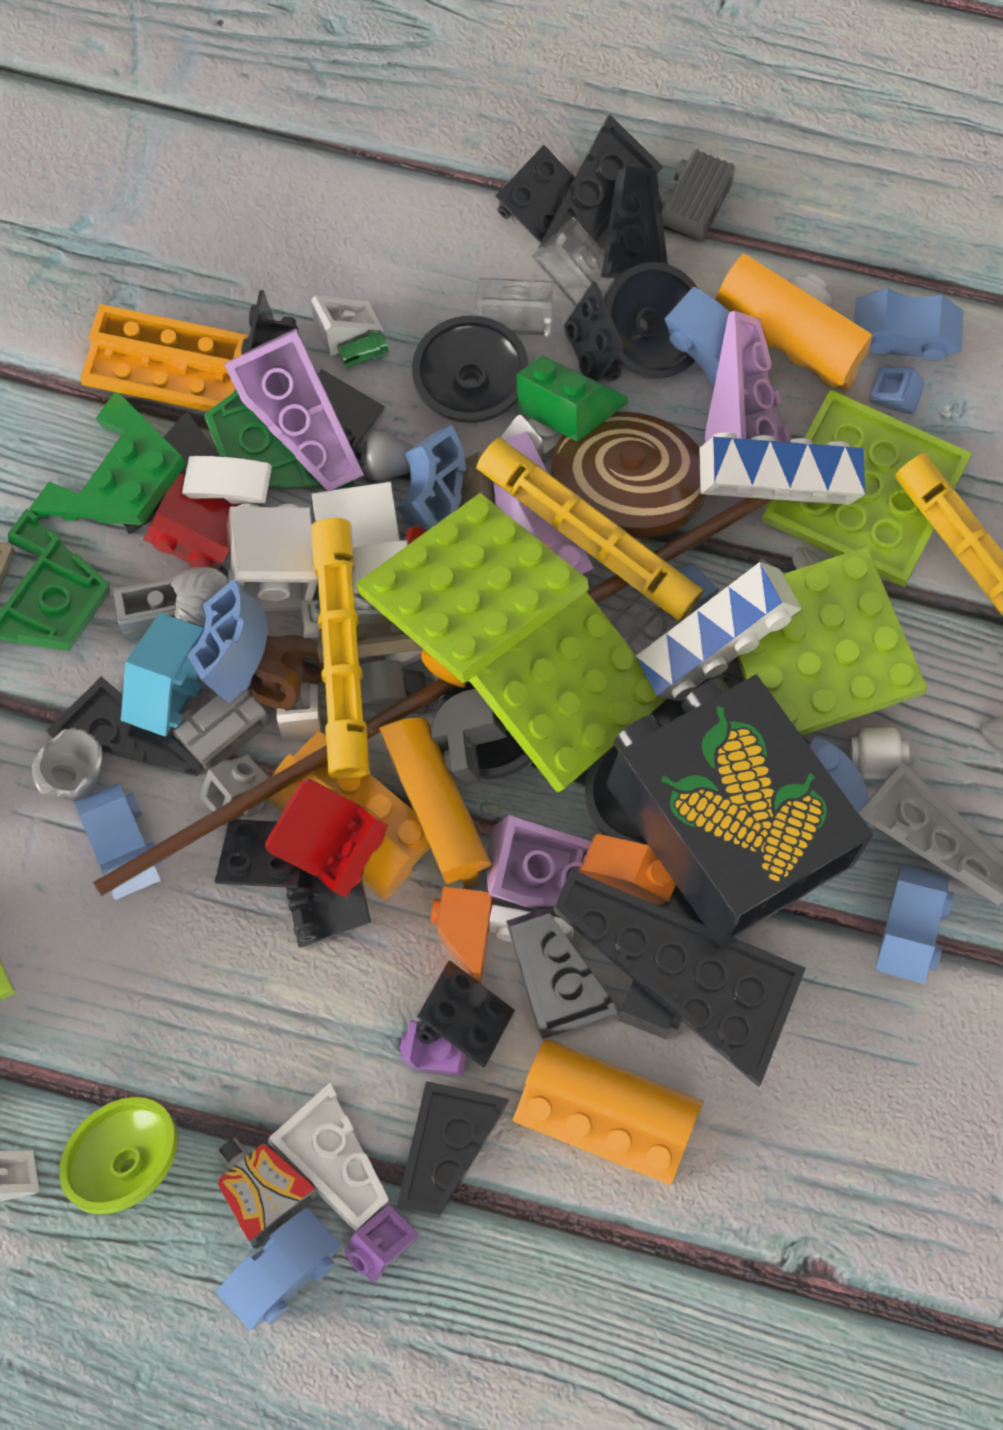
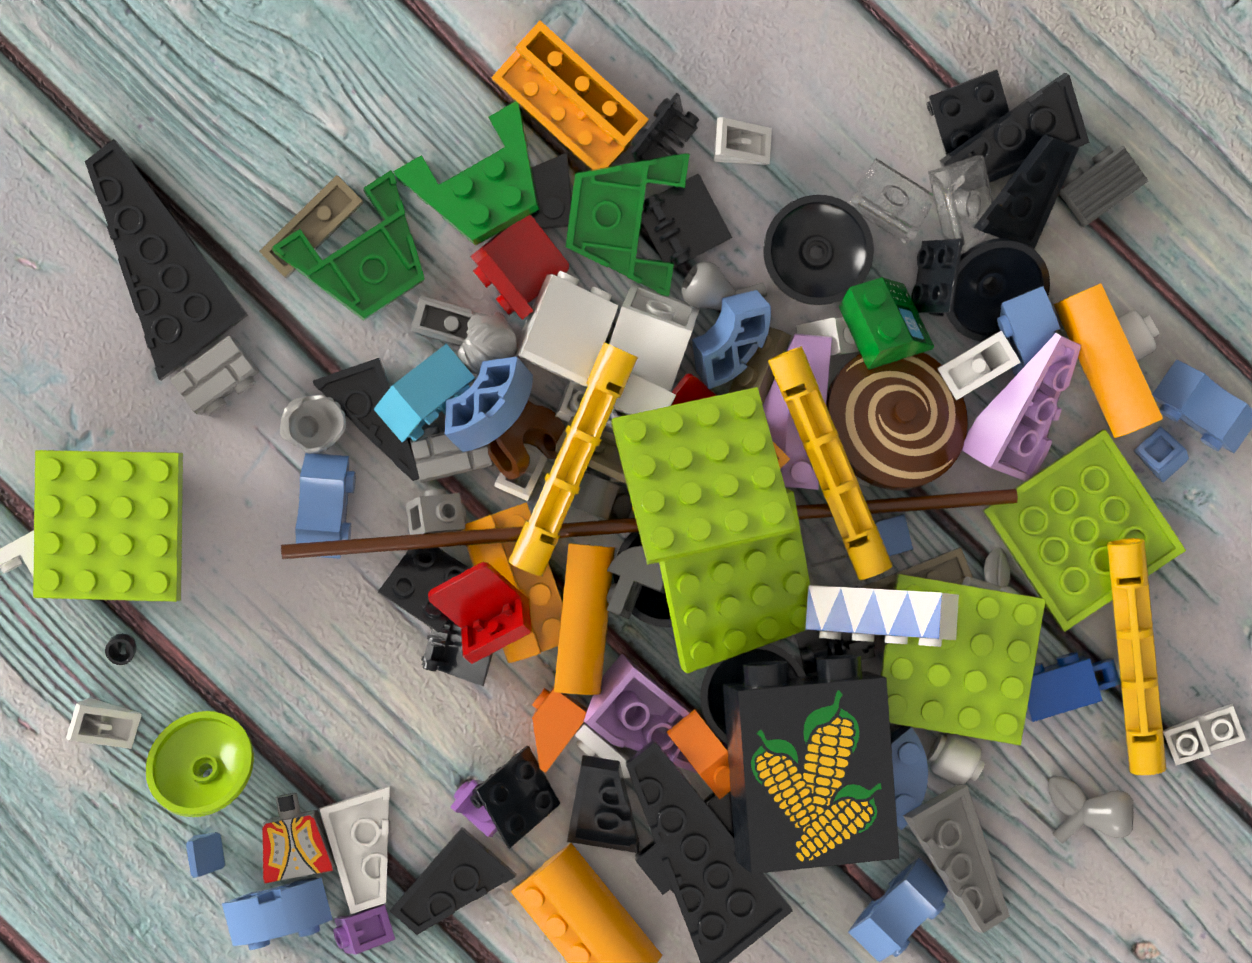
camera: 25 degrees right, 20 degrees up
(172, 1255) = (205, 854): none -> medium blue slope
(227, 478) = (563, 245): white slope -> none
(292, 402) = (651, 203): lavender wedge -> none
(363, 349) = (742, 175): green pin -> none
(678, 389) = (978, 365): none -> white slope
(782, 469) = (1016, 495): white brick -> none
(943, 627) = (1068, 685): none -> blue brick

